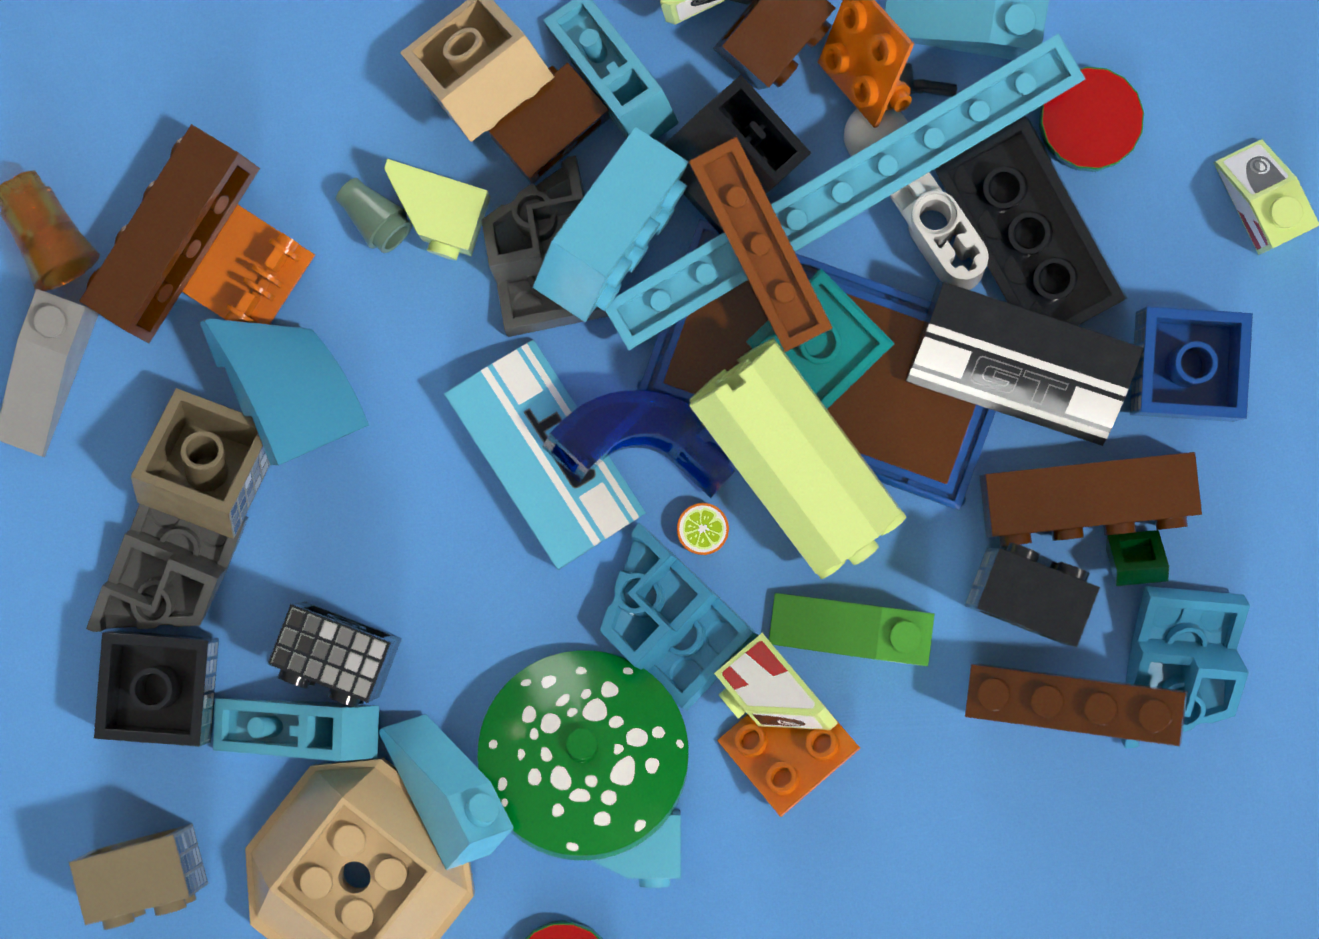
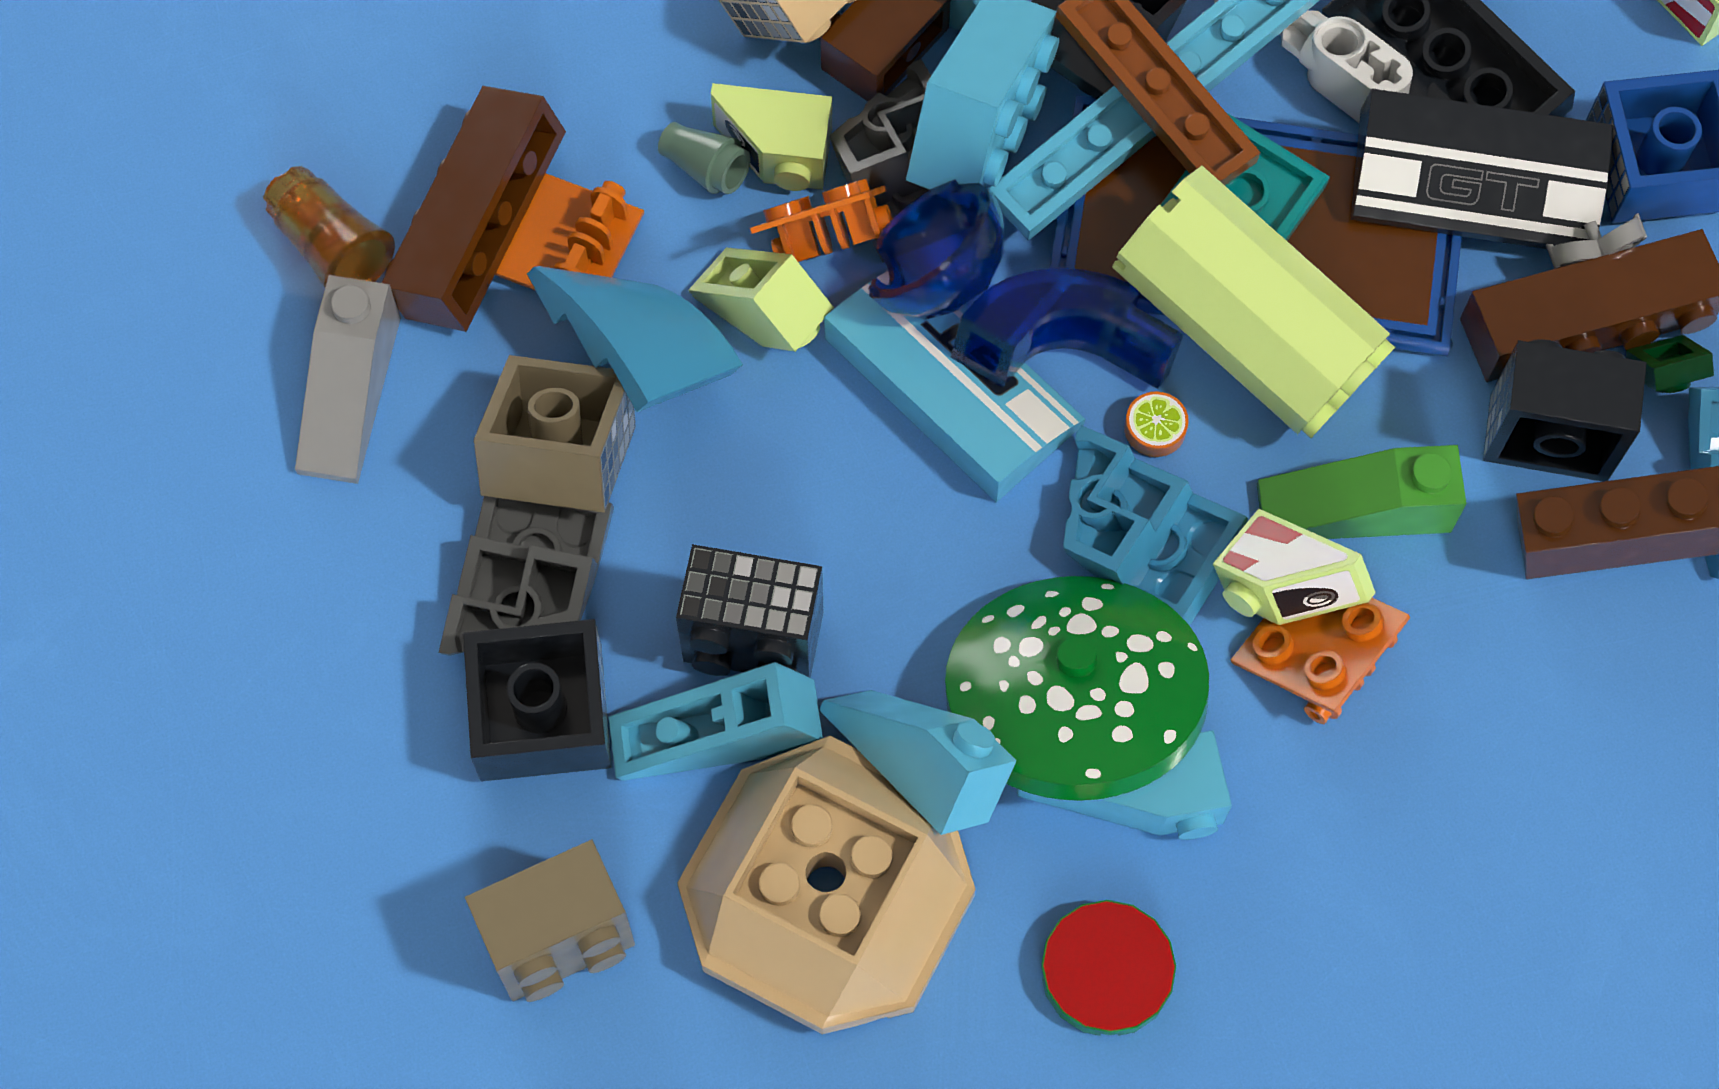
camera: 15 degrees left, 20 degrees down
(397, 359) = (764, 297): none -> yellowish green slope
(459, 301) = (795, 218): none -> orange hinge
(547, 366) = (940, 251): none -> clear blue cylinder
(1104, 450) = (1622, 238): none -> light grey piece

